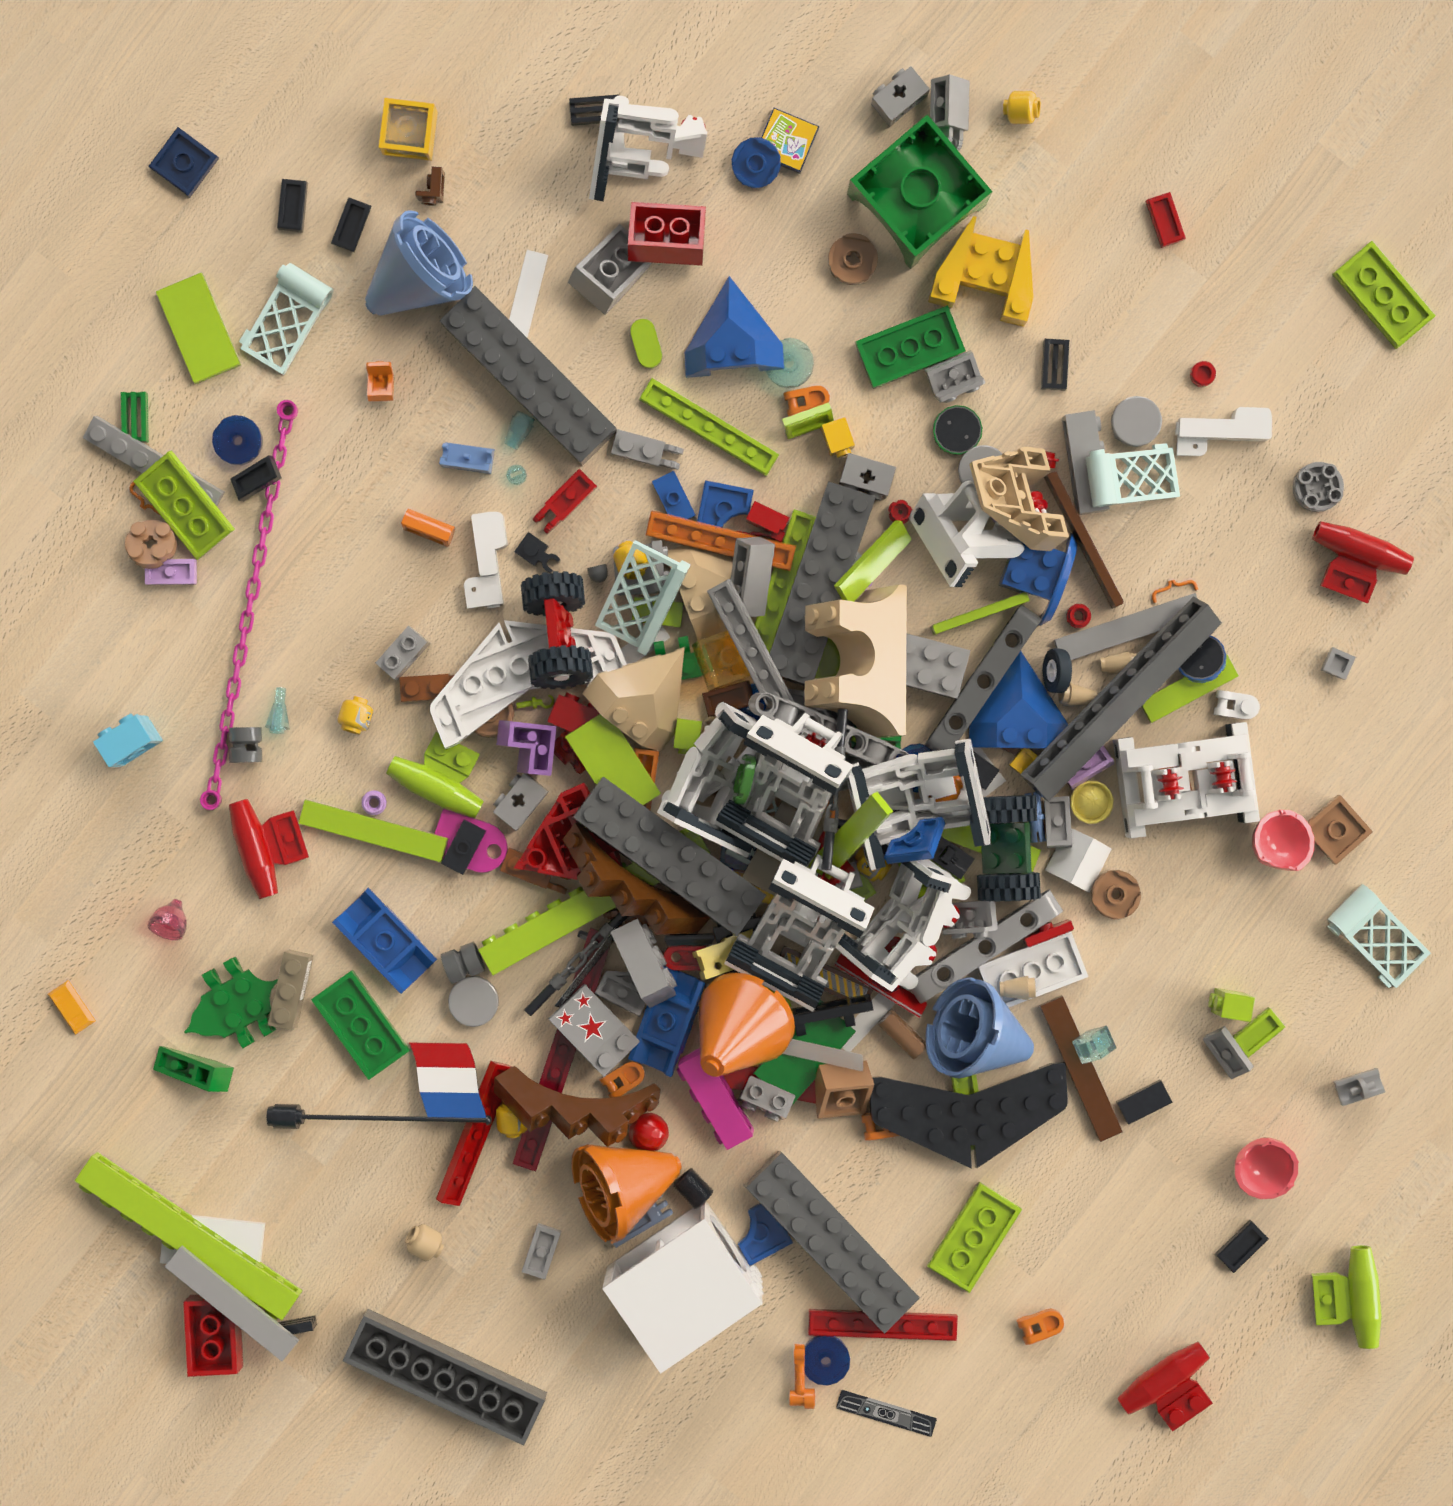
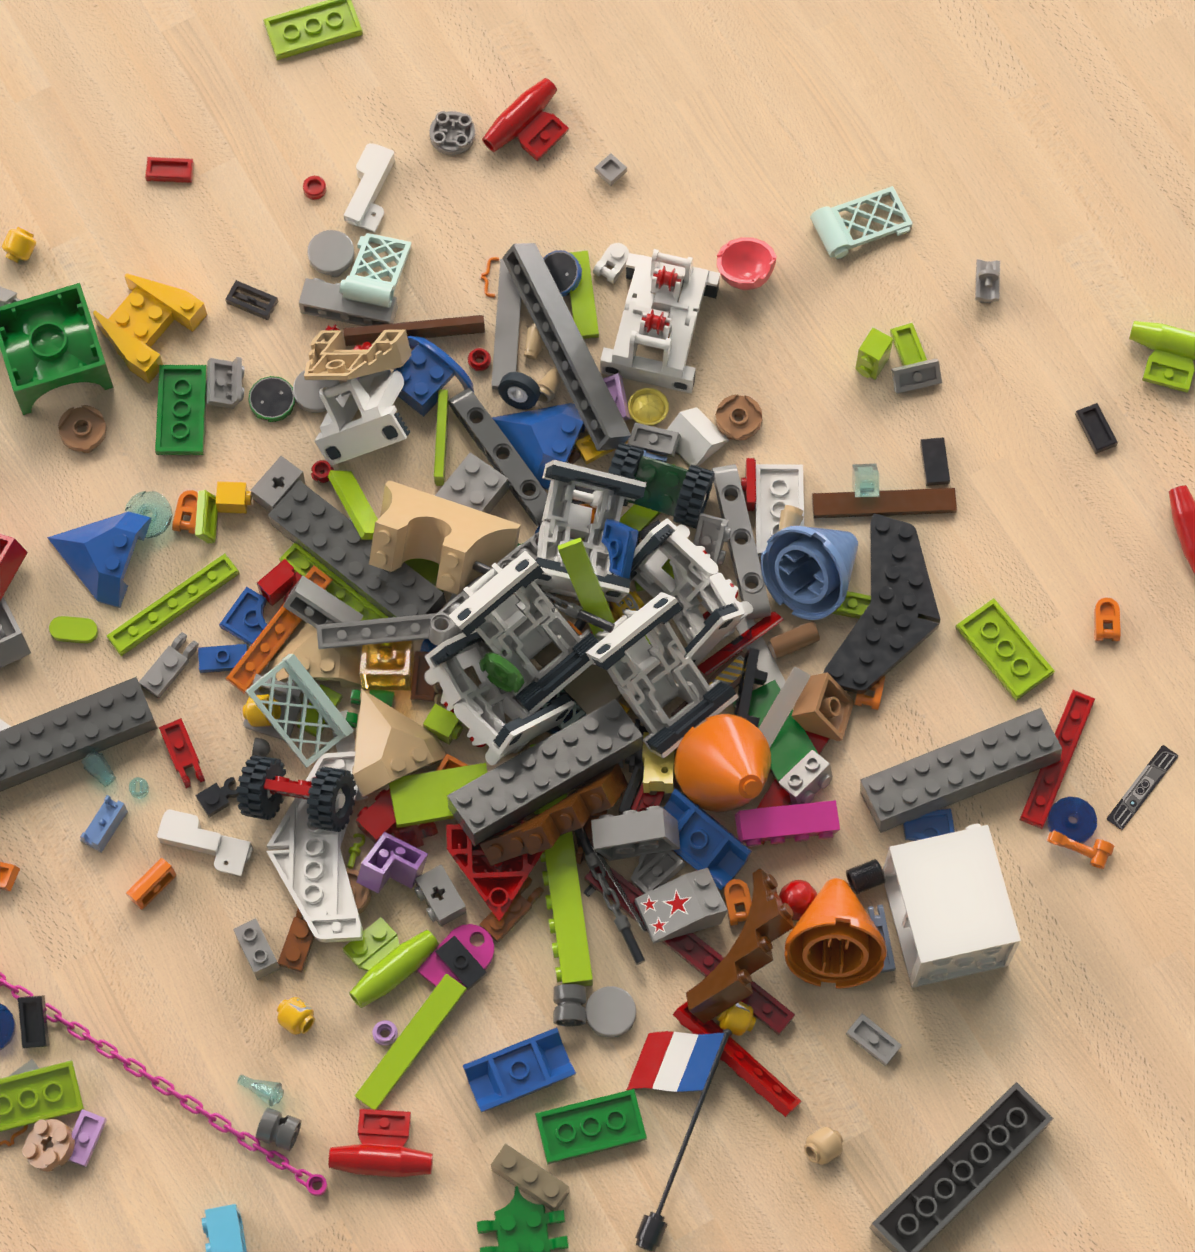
camera: 70 degrees left, 20 degrees down
(1266, 1168) = (1030, 377): coral cylinder -> none
(1338, 829) = (755, 218): medium nougat plate -> none

